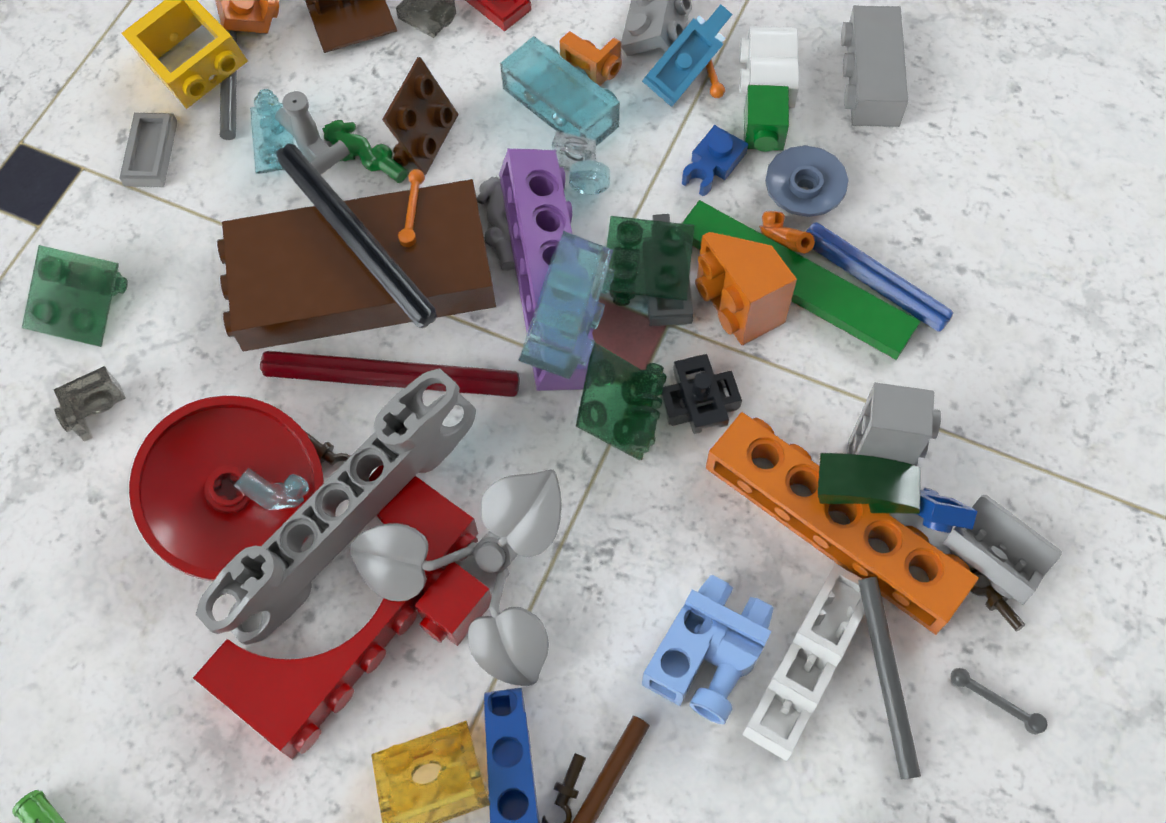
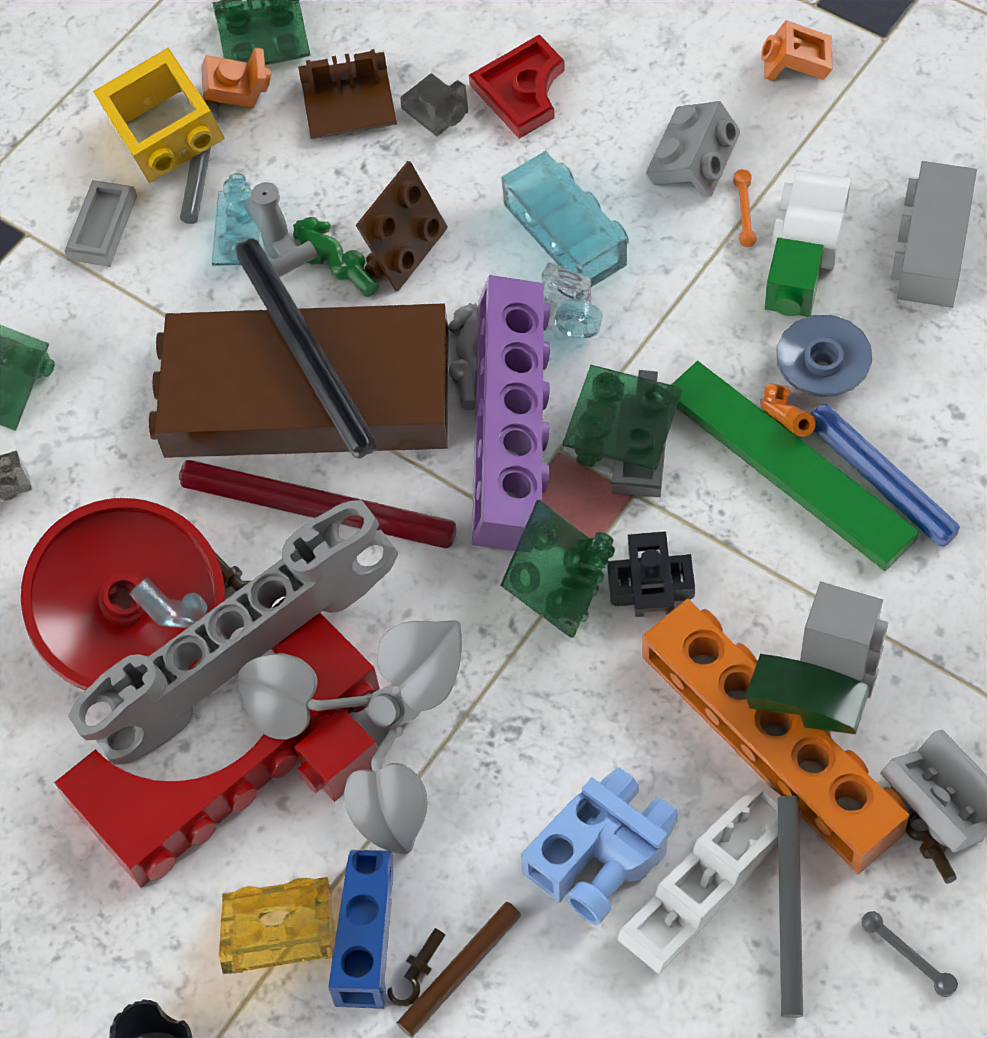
camera: 15 degrees right, 5 degrees down
(407, 236) = (360, 357): orange hinge -> none
(568, 306) = (517, 456): clear light blue brick -> none
(596, 63) = (611, 191): orange bracket -> none
(687, 56) = (718, 195): dark azure hinge -> none
(714, 155) = (729, 313): blue plate -> none
(744, 284) = (723, 462): orange slope -> none
(944, 512) = (884, 739): blue plate -> none

